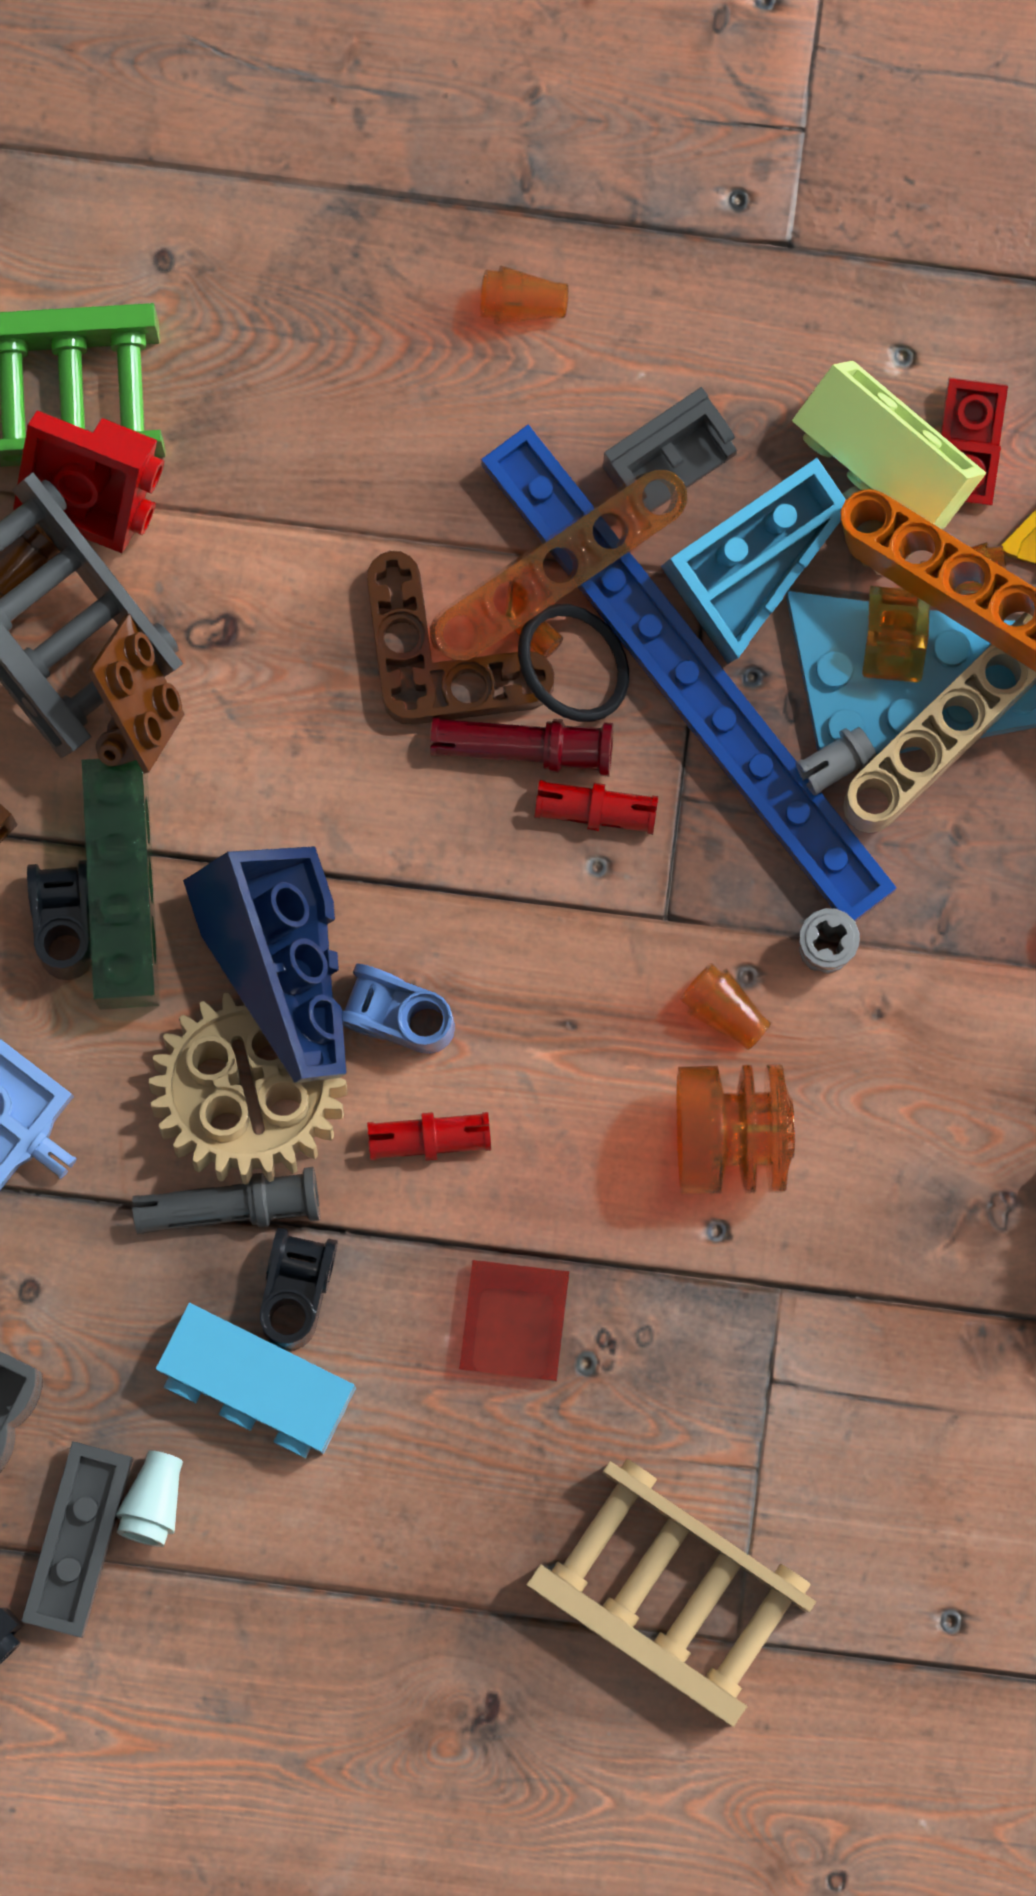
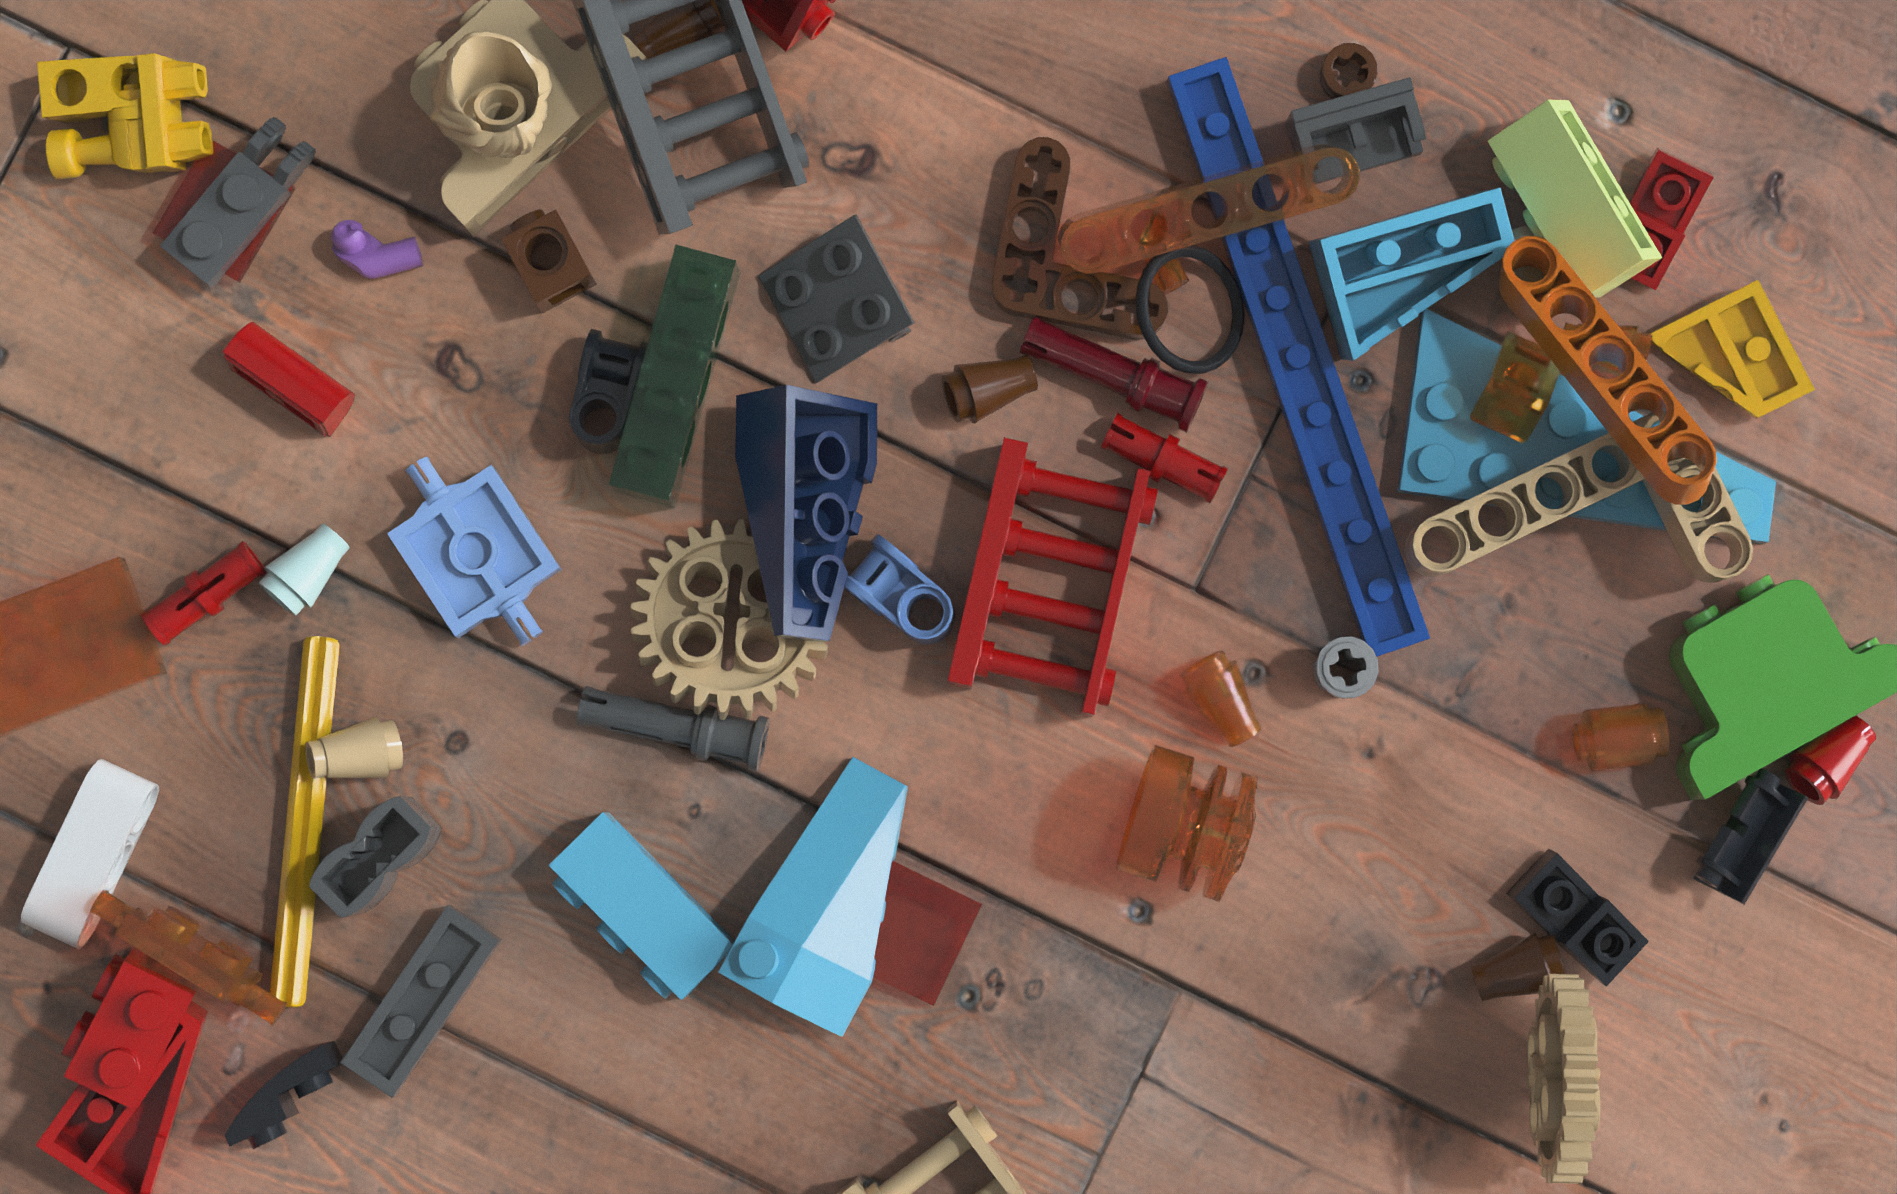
camera: 20 degrees right, 5 degrees up
(137, 696) = (747, 200): reddish brown hinge -> none
(151, 1502) = (504, 988): light aqua cone -> none
(245, 762) = (837, 299): none -> dark grey hinge
(296, 1284) = (714, 825): black piece -> none
(410, 797) = (985, 387): none -> reddish brown cone
(423, 1331) = (822, 913): none -> medium azure wedge
(429, 1136) = (891, 725): red pin -> none
(481, 985) = (992, 596): none -> red fence
(632, 389) = (1342, 55): none -> reddish brown bush
(836, 760) = (1417, 493): light grey pin -> none

